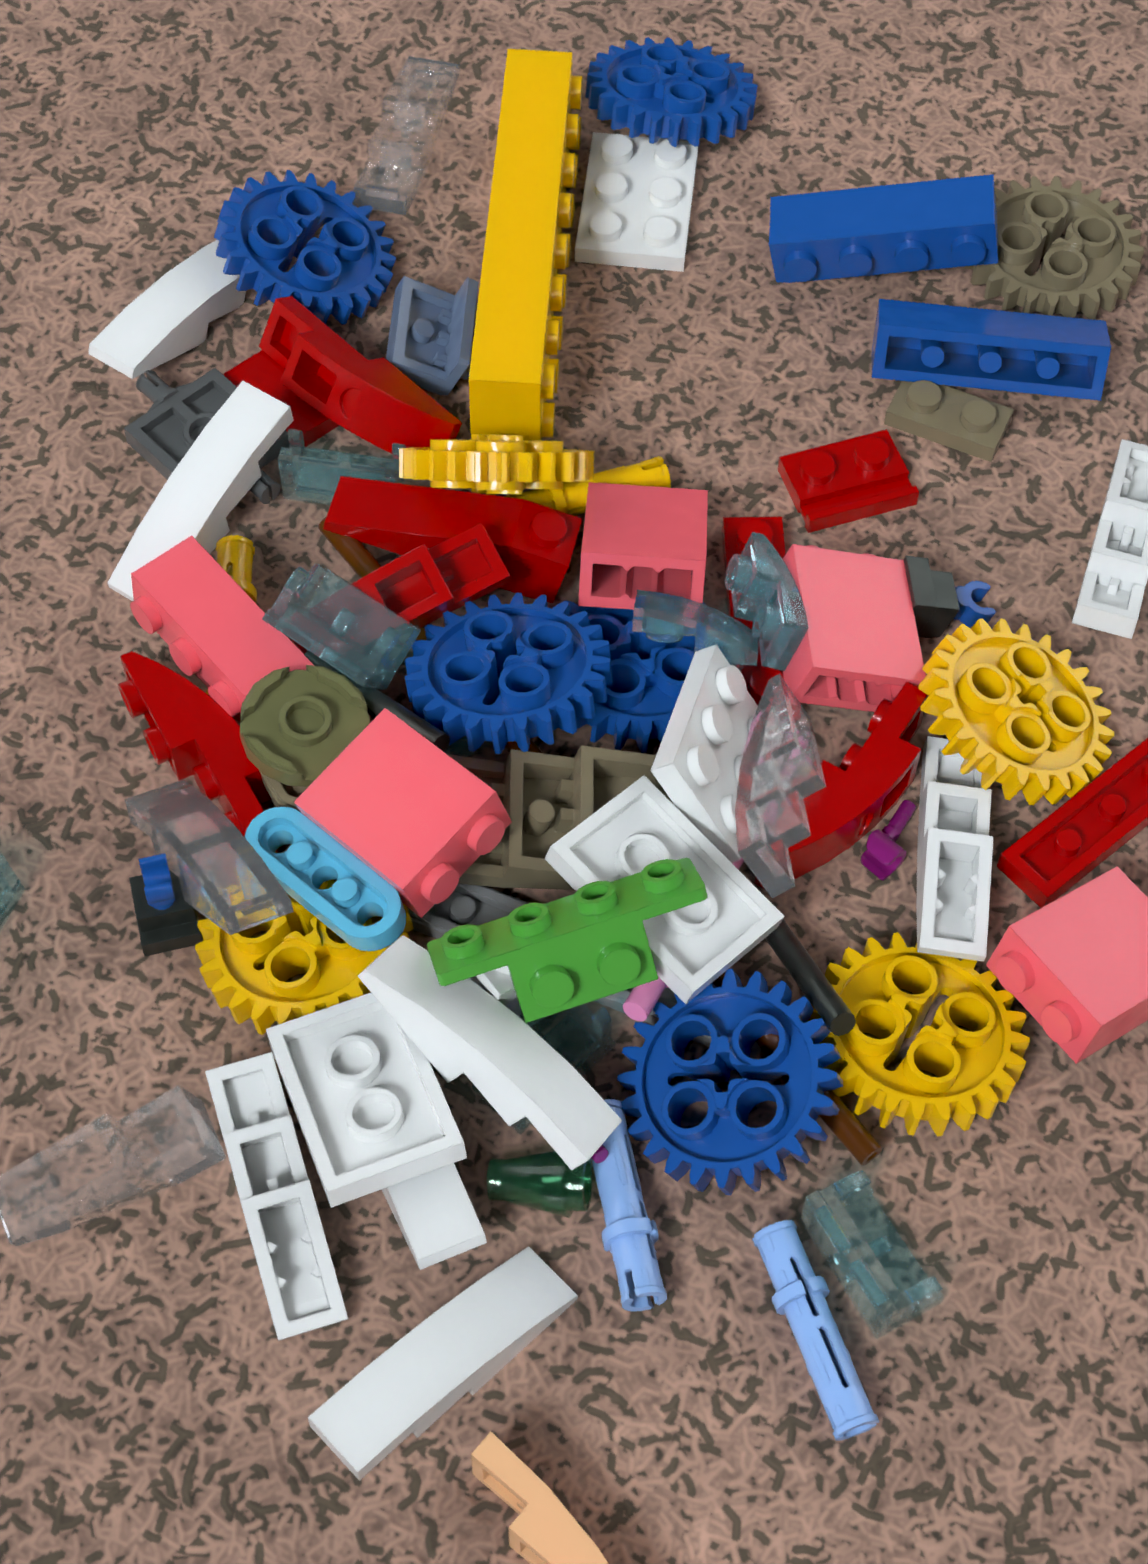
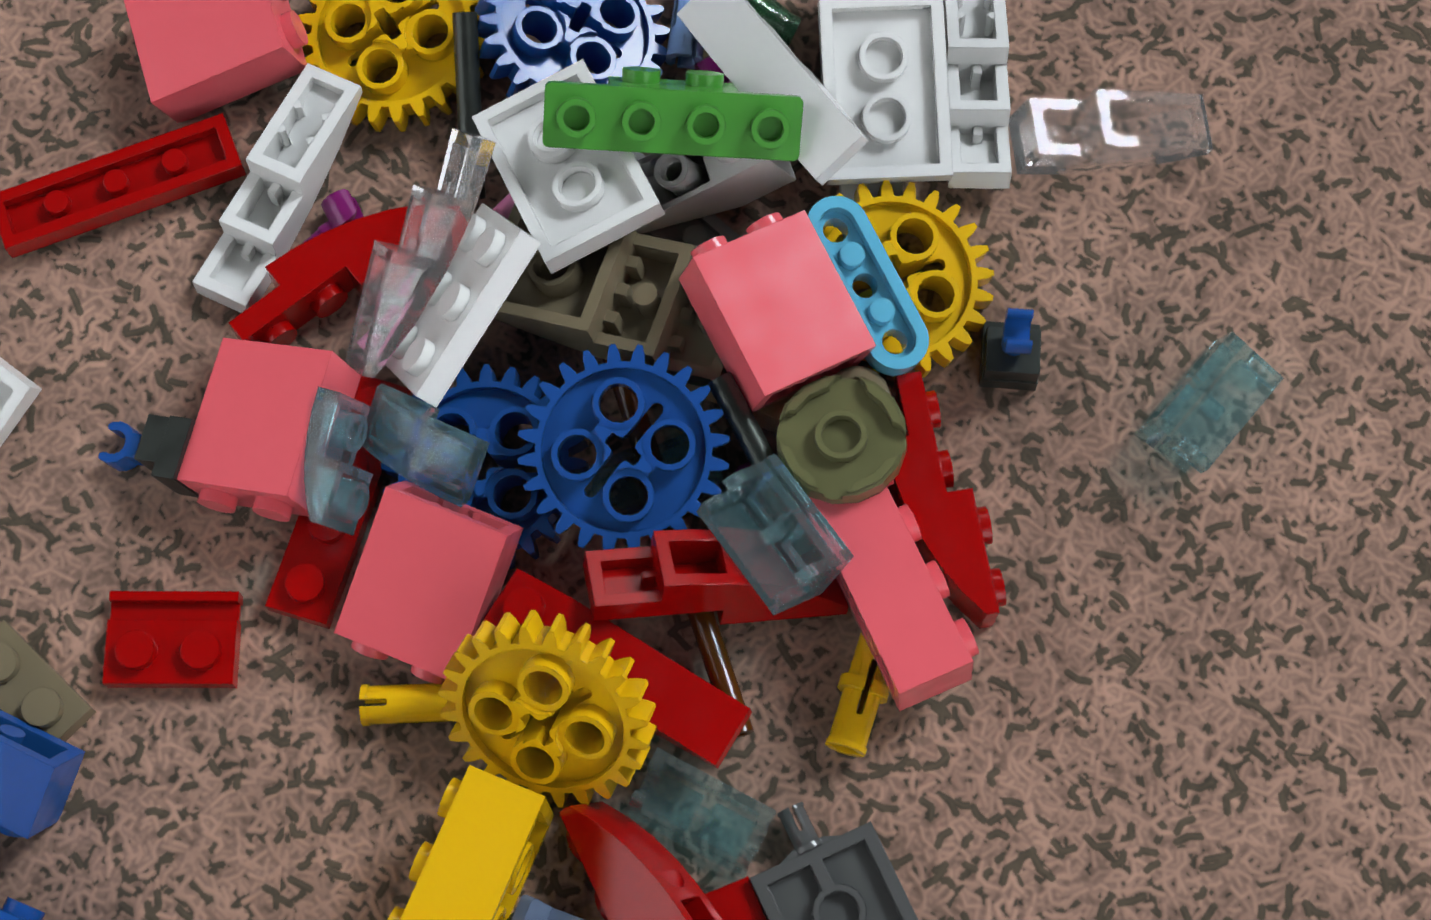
camera: 160 degrees left, 15 degrees up
(207, 481) = (865, 808): white slope -> none
(210, 856) = (966, 353): clear slope -> none
(1016, 711) = (153, 291): yellow gear -> none

